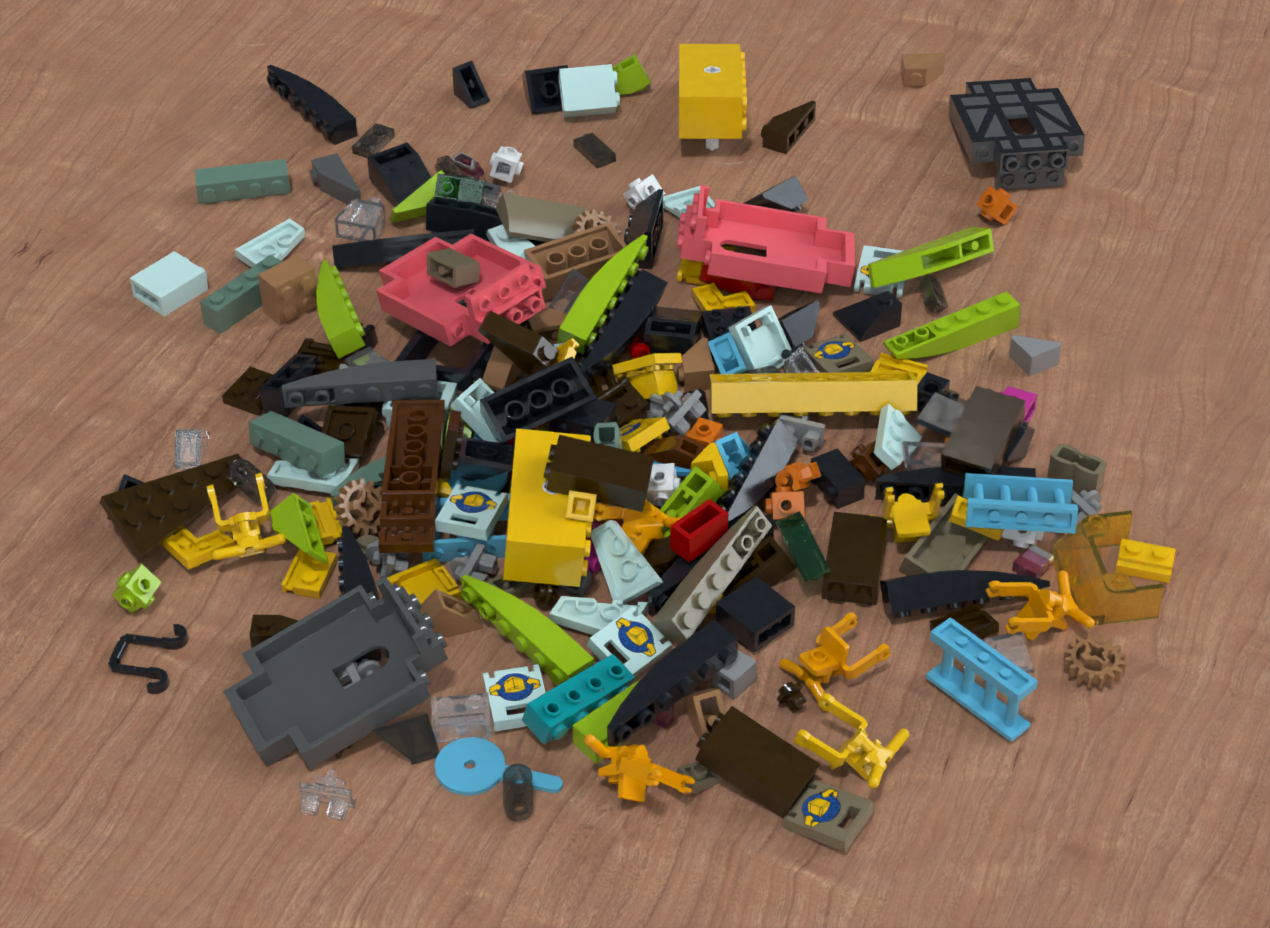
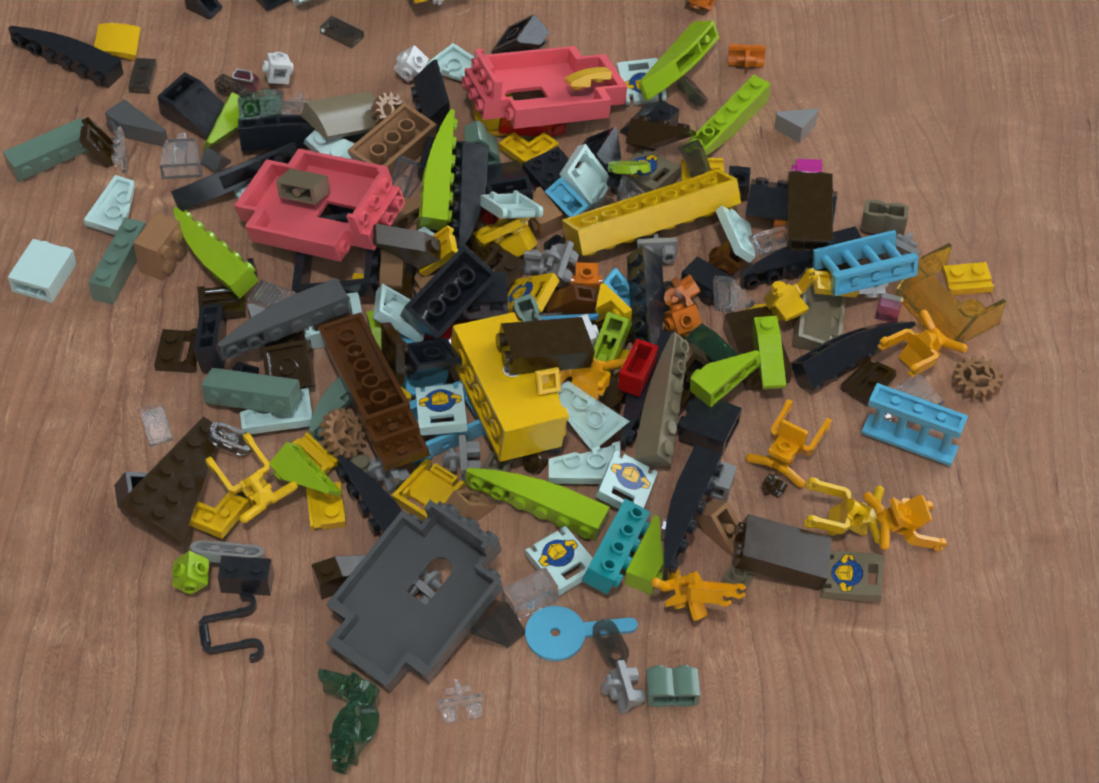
camera: 25 degrees left, 10 degrees up
(186, 584) = (215, 549): none -> light grey plate
(189, 608) = (245, 575): none -> black piece
(205, 774) = (355, 722): none -> clear green hips
(287, 184) = (96, 142): none -> dark brown plate
(309, 199) = (120, 156): none -> clear slope
(368, 103) = (118, 39): none -> yellow slope
(394, 228) = (214, 160): none -> dark grey slope
(501, 835) = (619, 687): none -> light grey hips
(558, 856) = (672, 686): none -> sand green brick
(656, 341) = (511, 205): none -> light aqua container
(678, 286) = (477, 133): none -> sand green brick
(787, 565) = (722, 376): none -> lime slope
(808, 247) = (584, 77): none -> yellow slope
(811, 343) = (629, 167): none -> lime tile
(849, 495) = (729, 295): none -> clear slope
(856, 559) = (768, 342): none -> lime slope
(863, 322) = (655, 135): none -> dark brown slope
(888, 353) = (694, 158): none -> clear smoke brick
(912, 770) = (905, 518): none -> light orange piece
(1015, 275) = (746, 55): none -> orange hips

